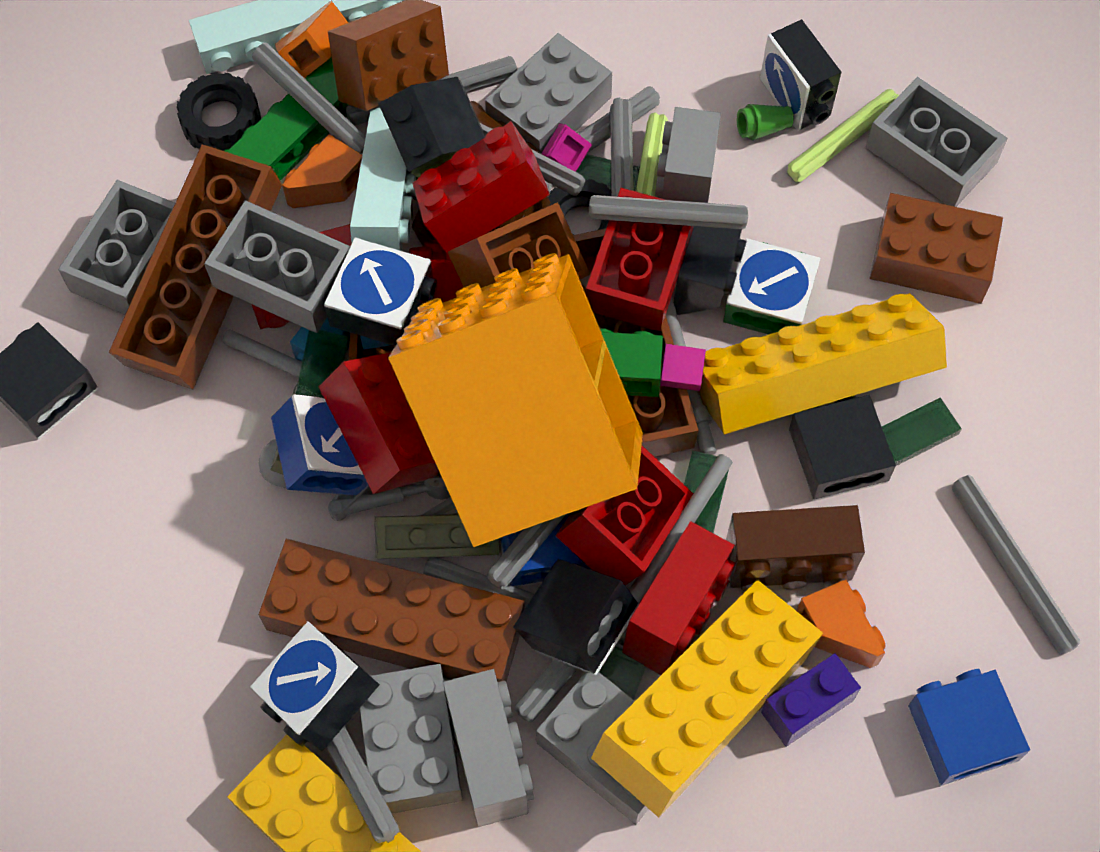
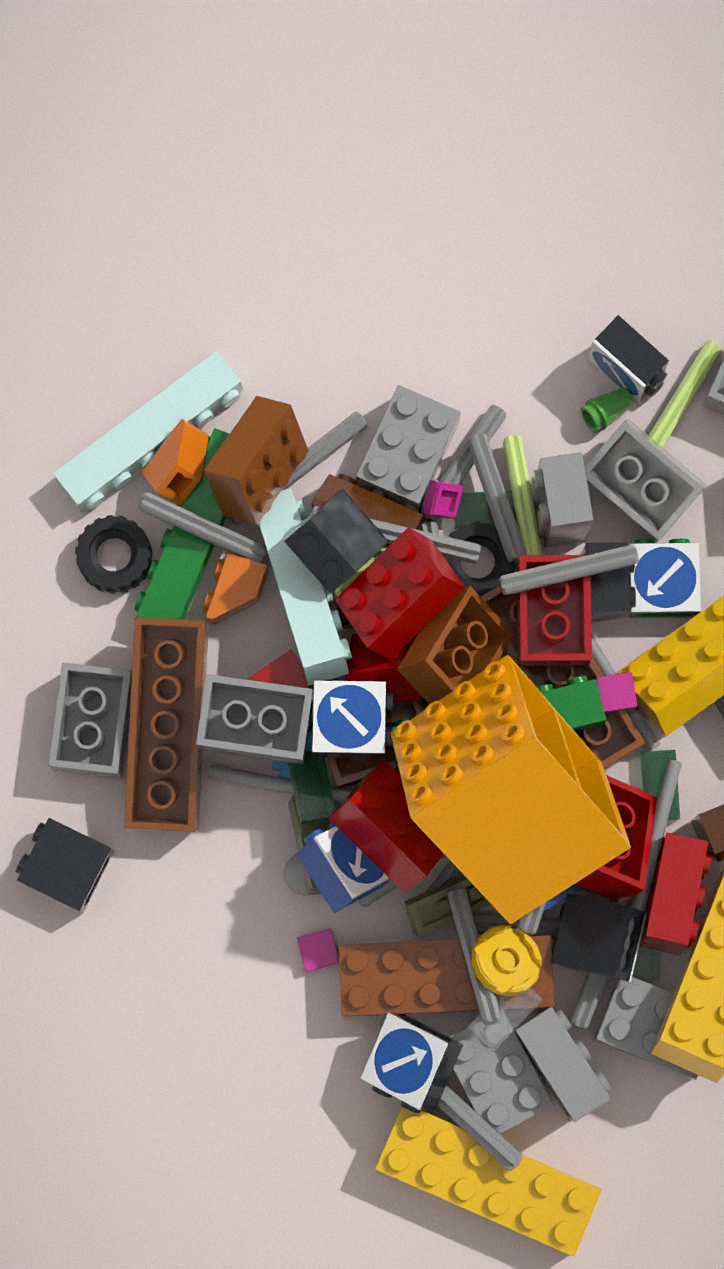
camera: 15 degrees left, 15 degrees up
(264, 548) = (318, 950): none -> dark pink tile
(427, 592) = (468, 935): none -> light grey axle
(439, 661) = (512, 1011): none -> clear tile
(460, 602) = (506, 960): none -> yellow tile
(781, 183) = (643, 479): none -> light grey brick

